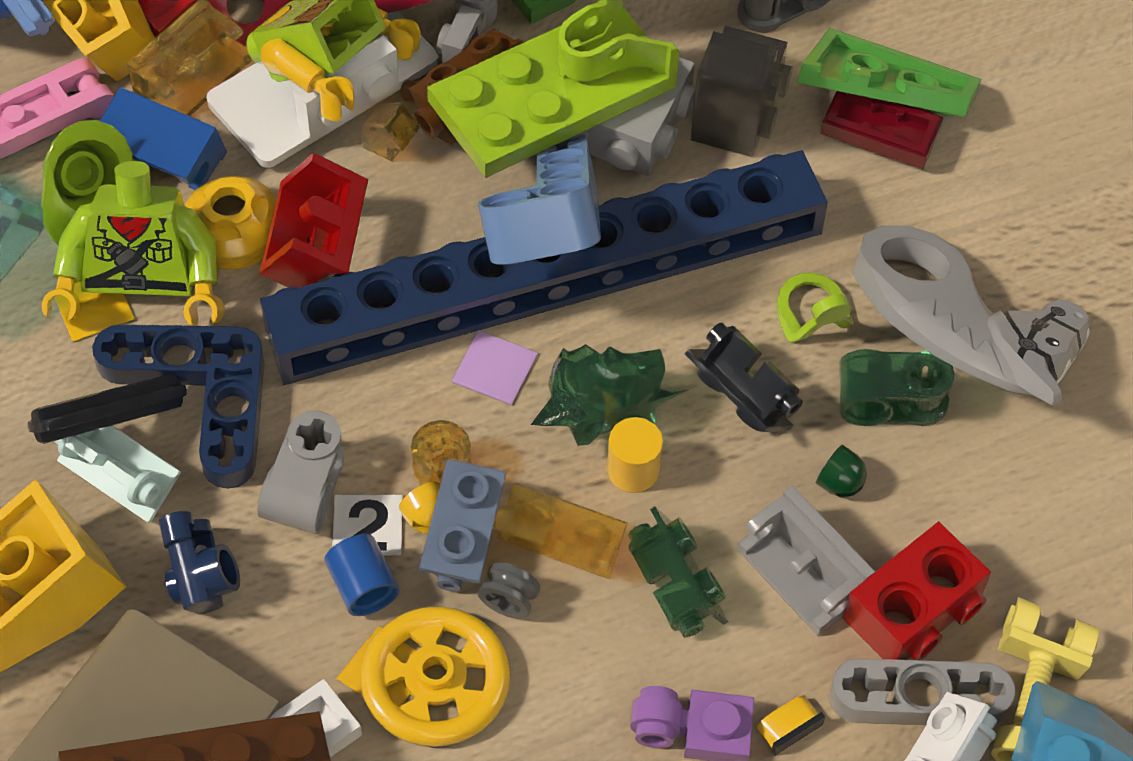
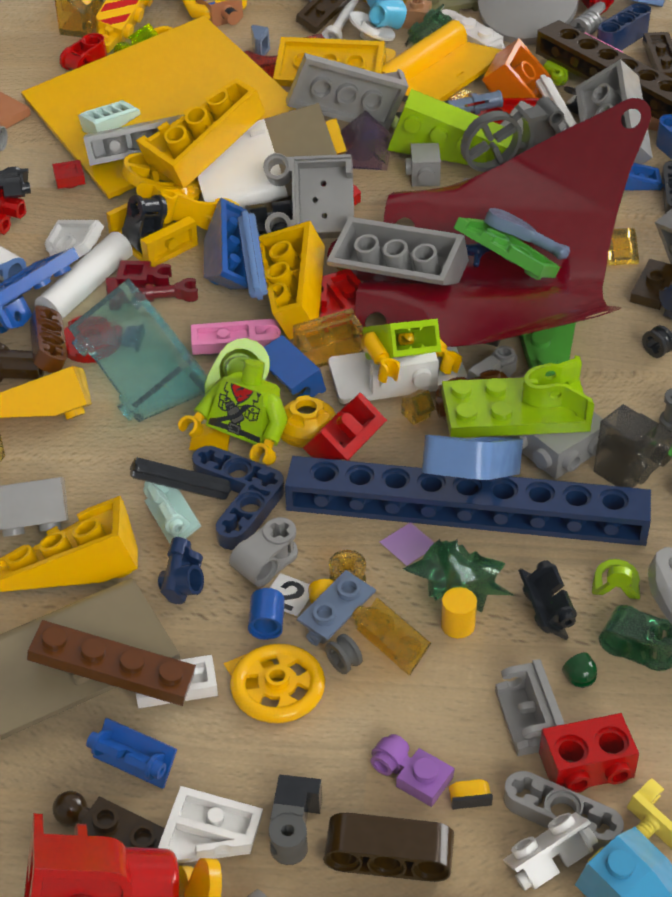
camera: 30 degrees right, 15 degrees down
(692, 592) = (452, 698): clear green hinge -> none

